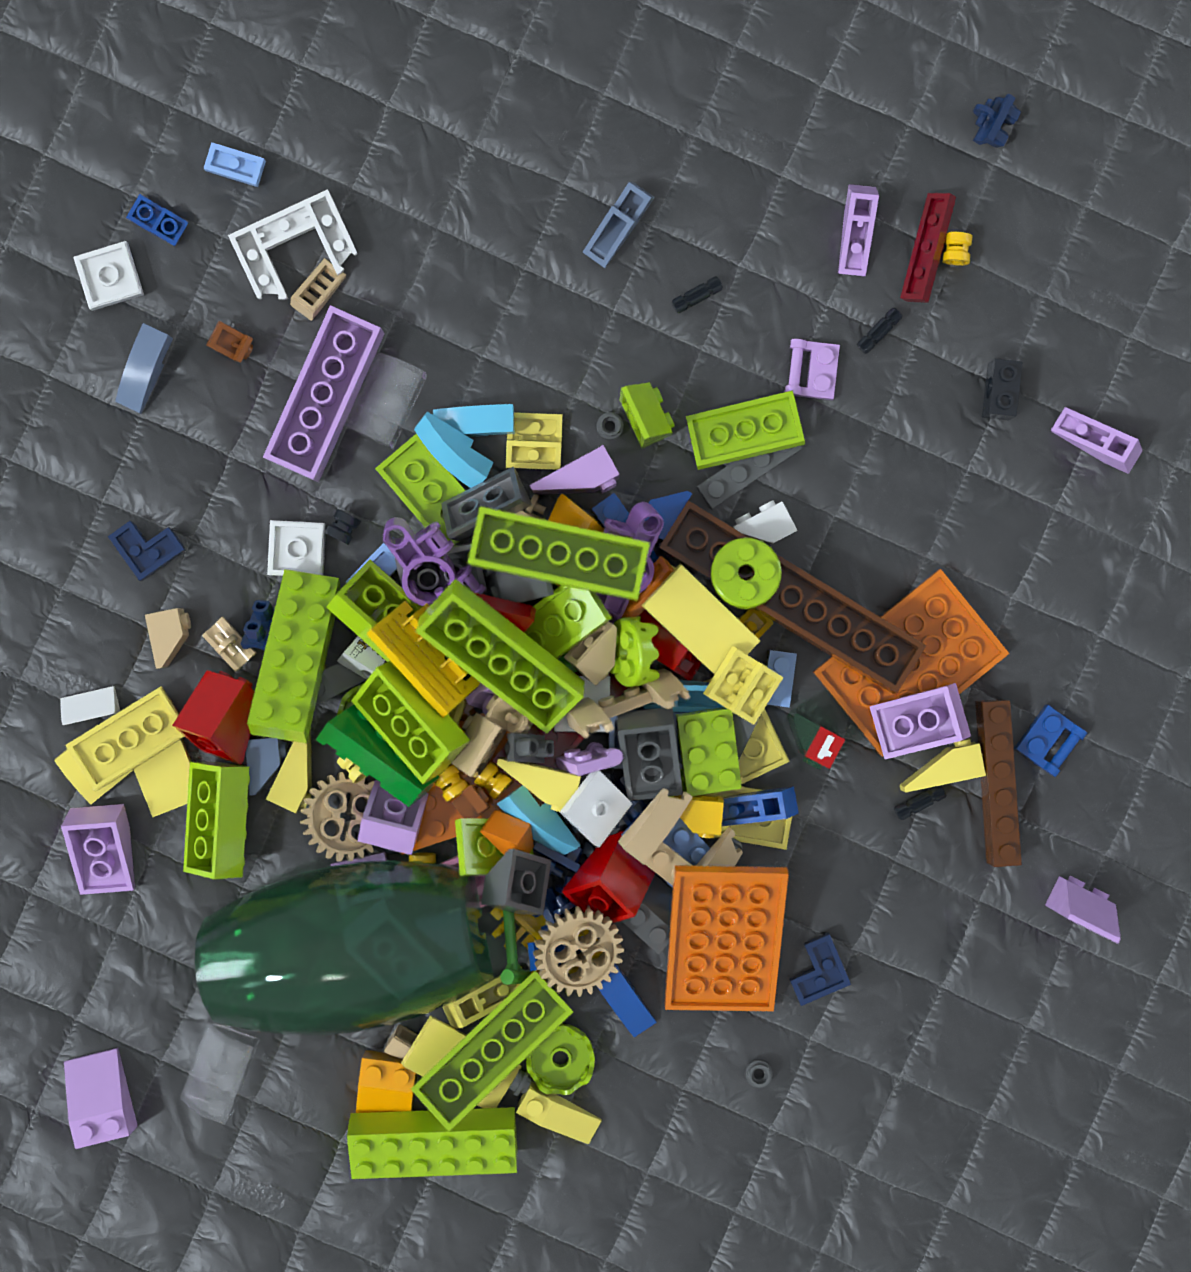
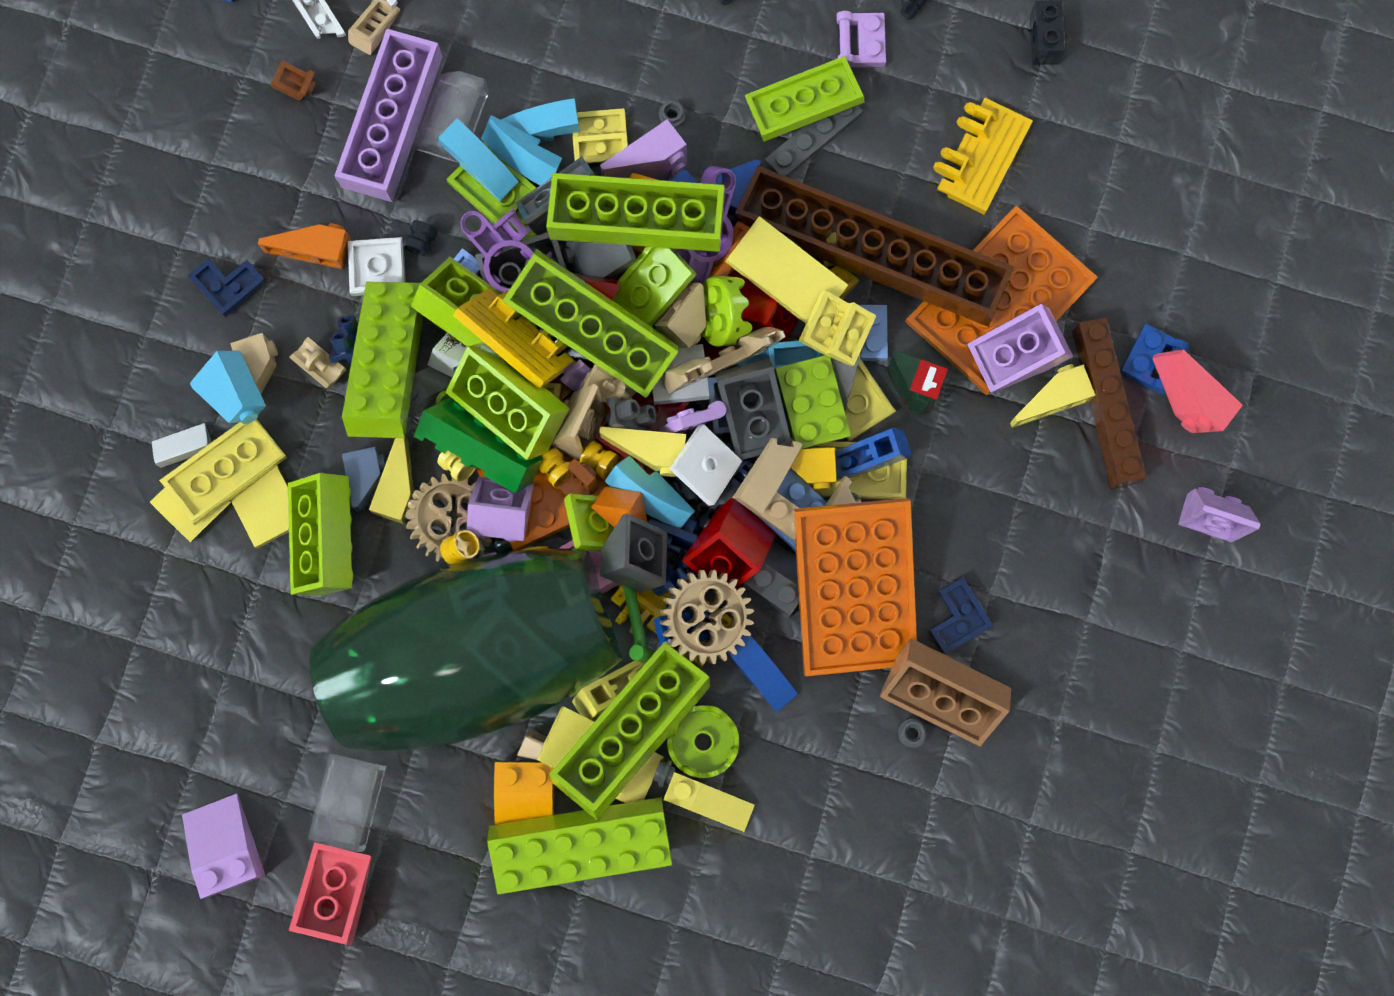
camera: 10 degrees left, 10 degrees down
(100, 848) = (203, 586): lavender slope -> none
(108, 275) = (170, 35): white plate -> none
(140, 664) = (229, 387): none -> medium azure slope
(143, 368) = (210, 114): sand blue slope -> none
(197, 1160) = (331, 894): none -> coral slope
(218, 716) = (312, 433): red slope -> none
(237, 519) = (311, 244): none -> orange slope
(349, 854) = (459, 547): none -> yellow wheel
(408, 459) = (477, 160): none -> medium azure slope
(645, 413) = (703, 93): lime slope -> none
(740, 592) = (829, 237): lime plate -> none
(767, 526) = (842, 181): white slope -> none
(797, 1043) = (946, 692): none -> medium nougat slope
(919, 511) = (982, 158): none -> yellow hinge
(920, 802) = (1033, 435): black axle -> none
(1083, 792) = (1194, 393): none -> coral slope
(1098, 440) = (1149, 67): lavender slope -> none

